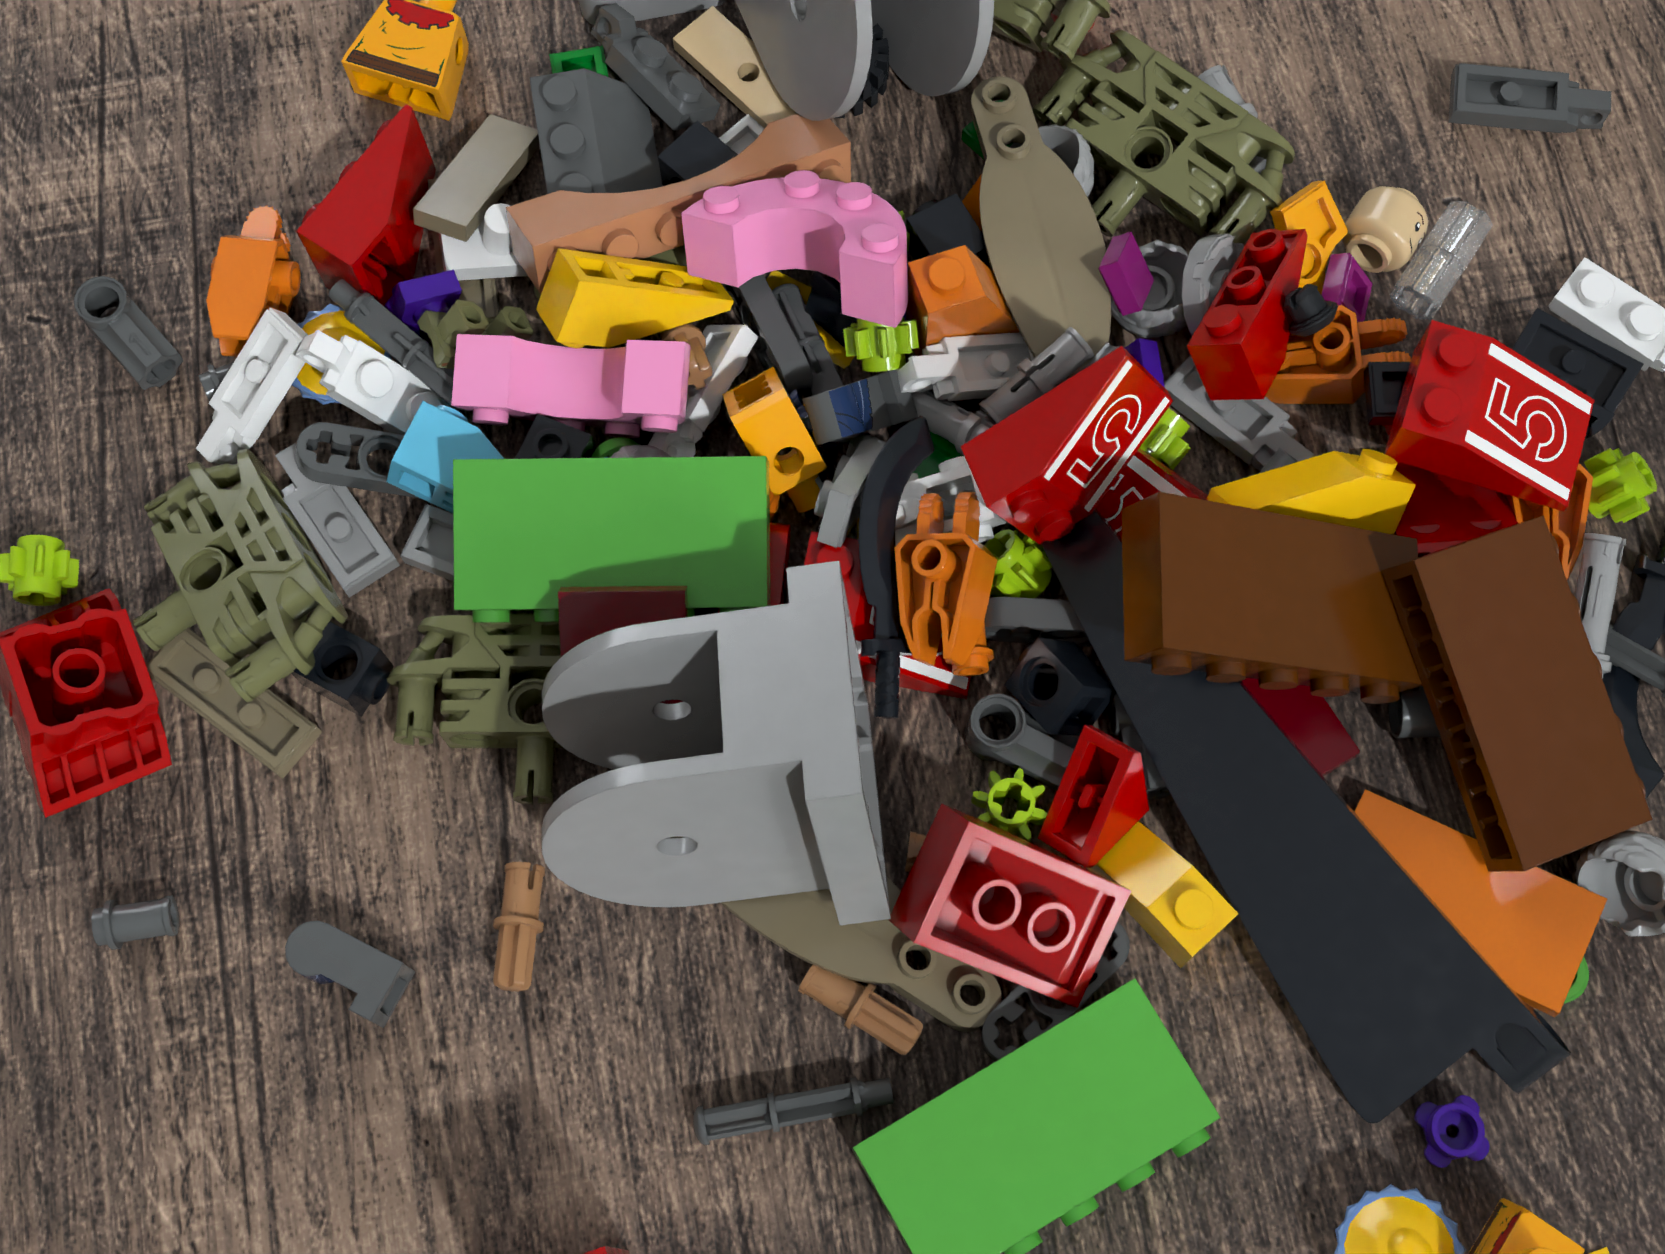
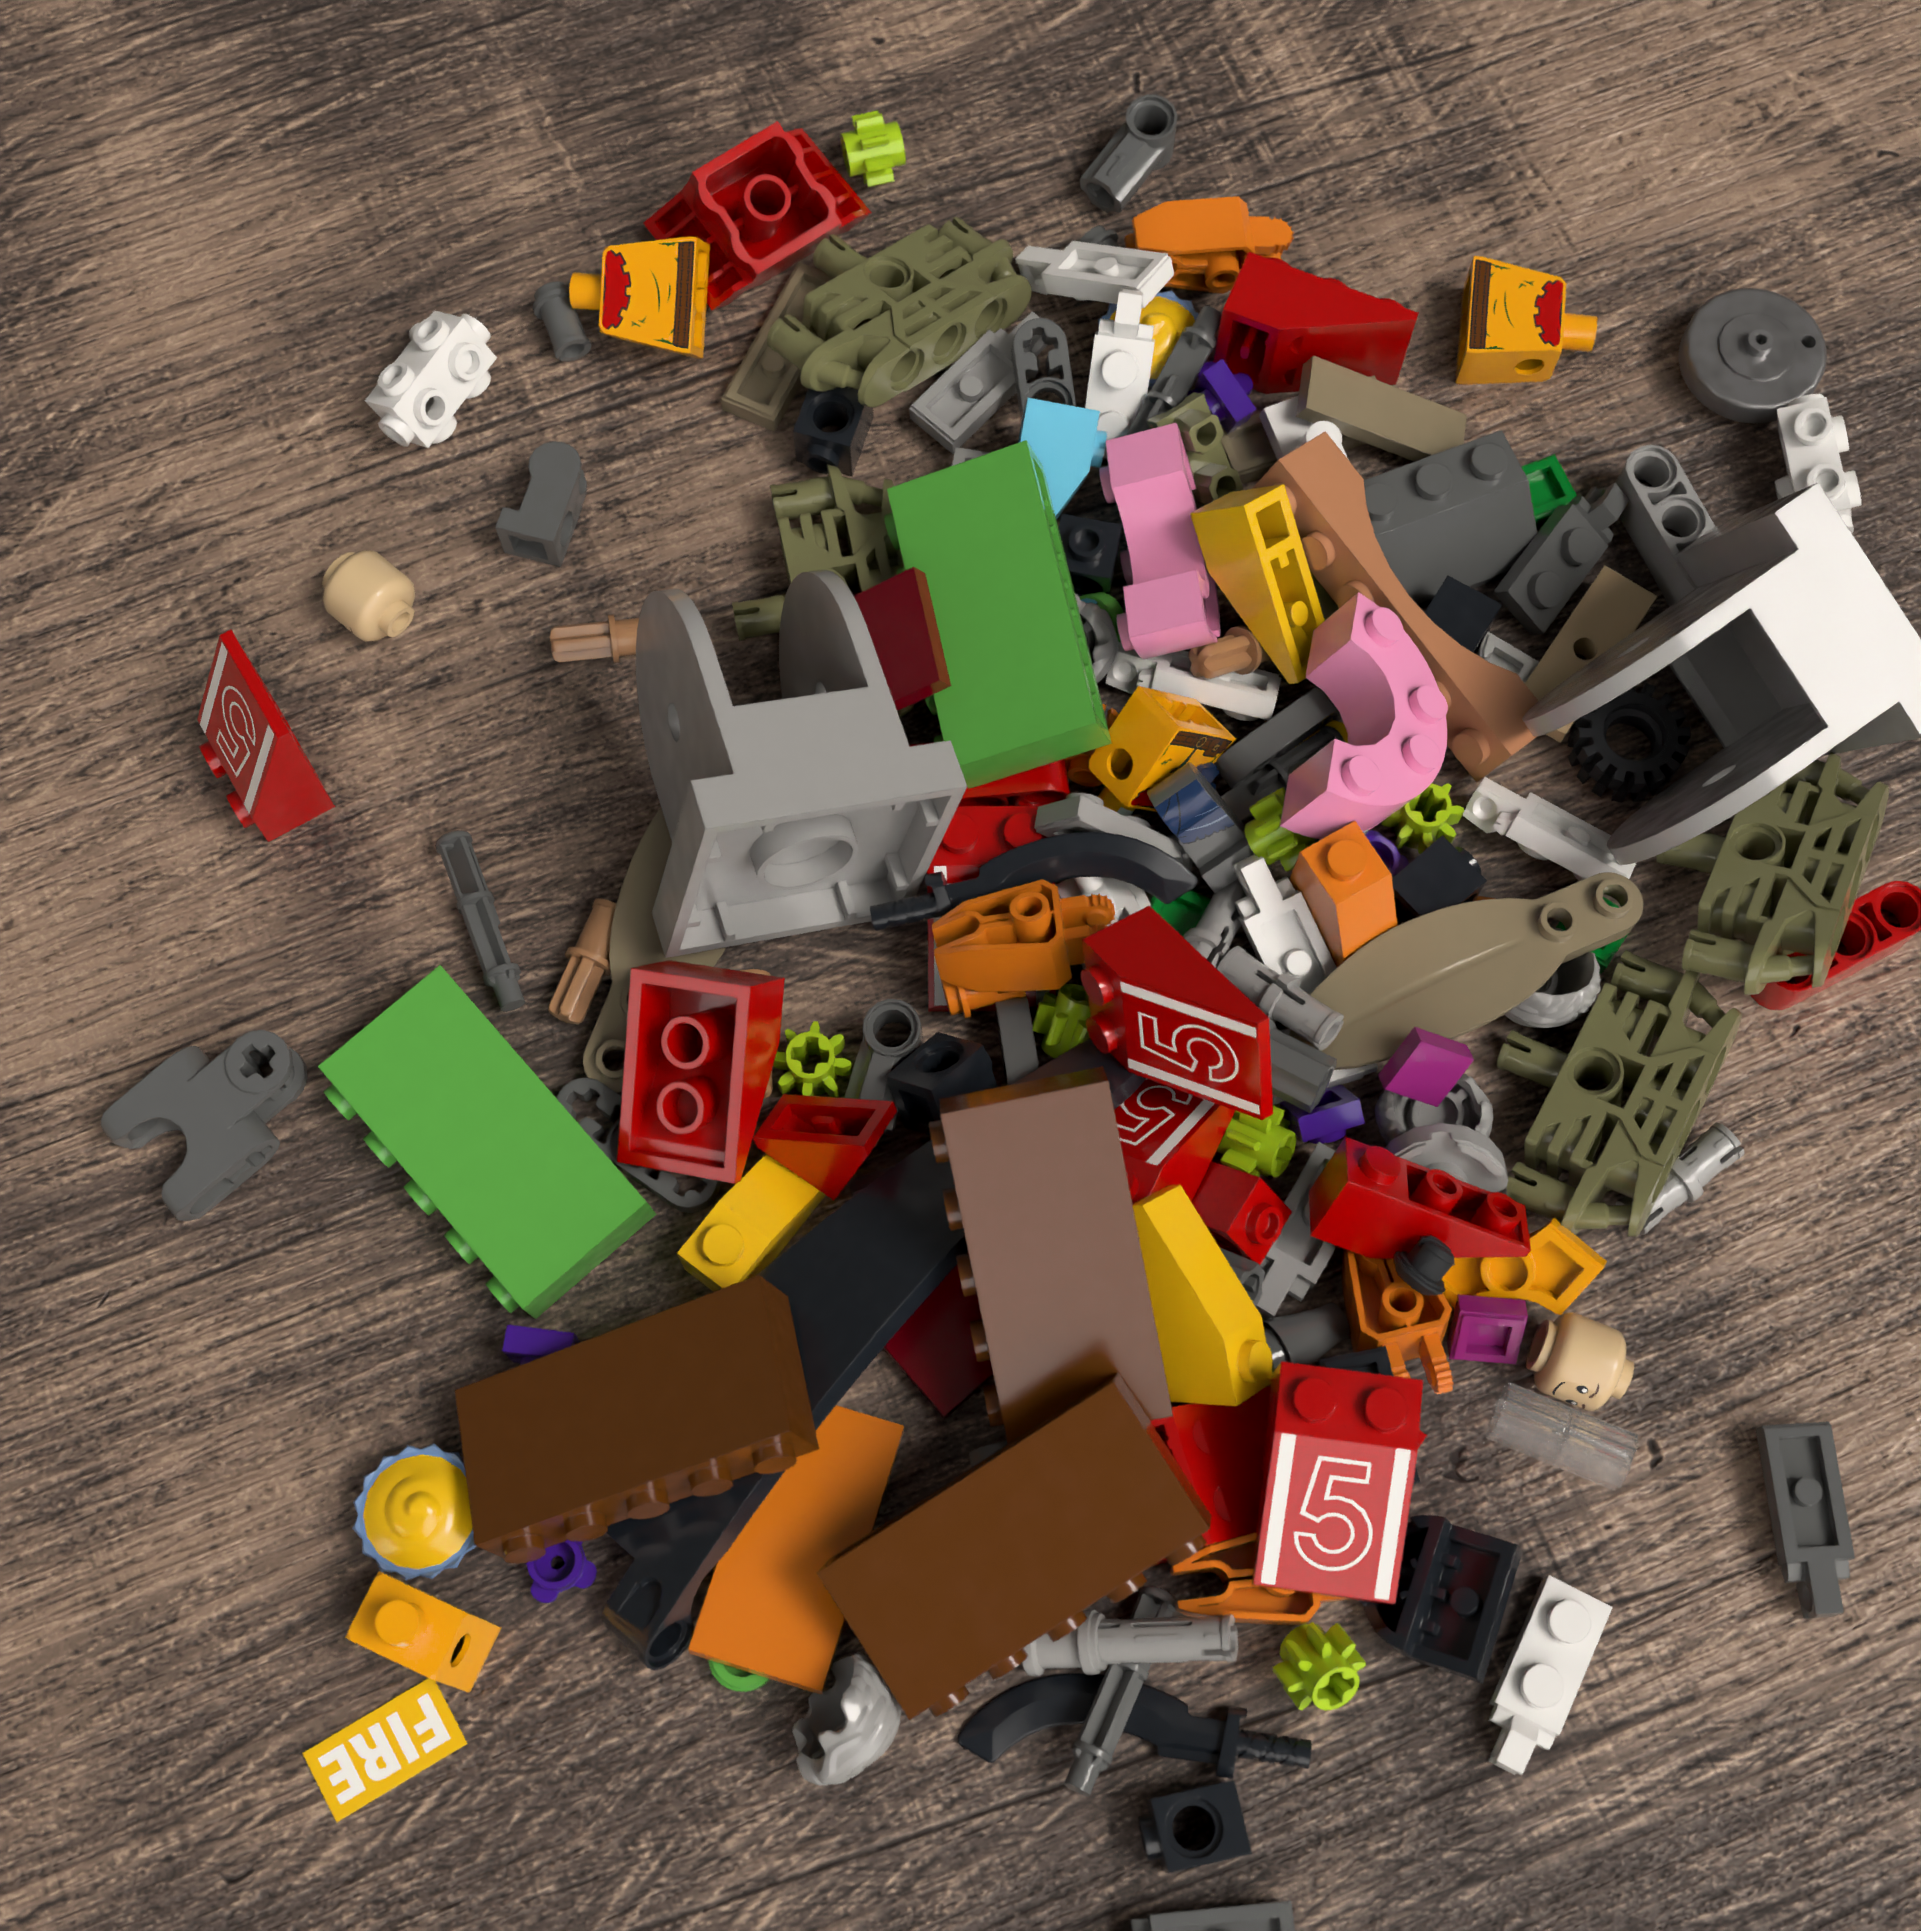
camera: 75 degrees right, 0 degrees up
(142, 819) = (650, 293): none -> light orange torso
(167, 1066) = (432, 379): none -> white brick
(407, 1173) = (368, 595): none -> tan head
(913, 140) = (1543, 830): none -> white hinge
(1222, 455) = (1240, 1211): none -> red brick
(1253, 1111) = (529, 1343): none -> dark purple plate
(1328, 429) = (1305, 1334): none -> dark grey cone
(1361, 1022) = (635, 1421): none -> reddish brown brick

